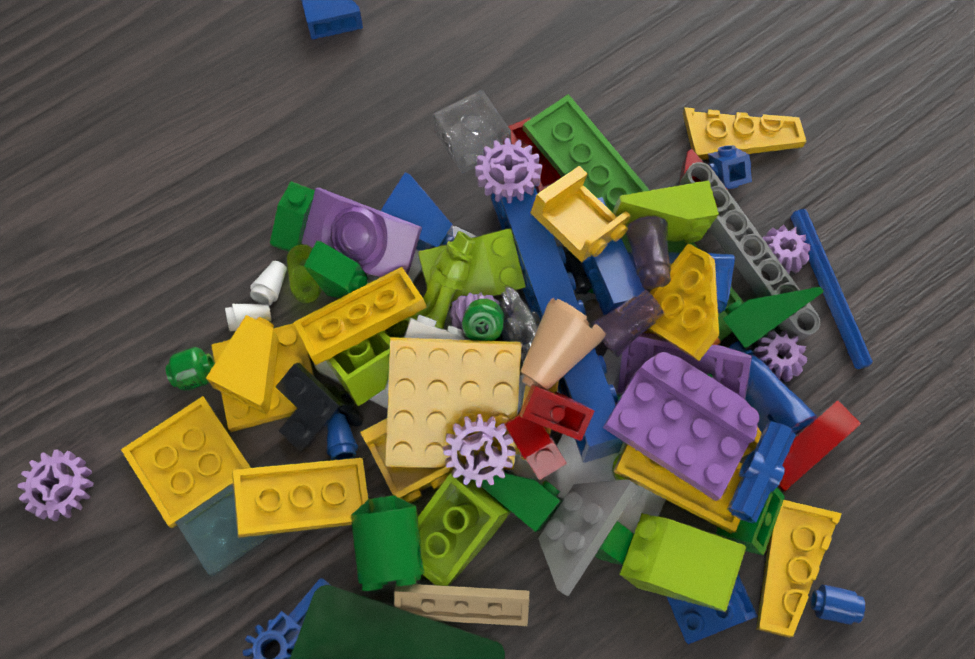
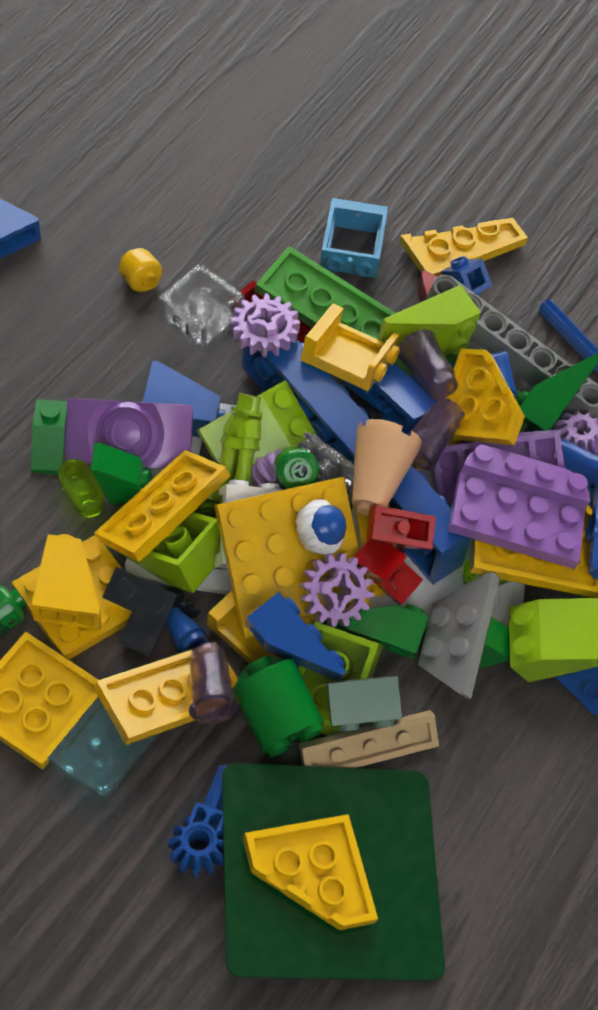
camera: 25 degrees left, 10 degrees down
(238, 312) = (31, 545): white cone -> none
(268, 285) = (48, 508): white cone -> none
(333, 504) = (211, 685): none -> plant
(415, 480) = (287, 636): none -> blue slope
(433, 80) = (140, 269): none -> yellow head
(465, 567) = (363, 701): none -> sand green brick
(481, 388) = (321, 527): none -> hair
(638, 73) = (344, 215): none -> dark azure window
(788, 248) = (550, 334): lavender gear -> none

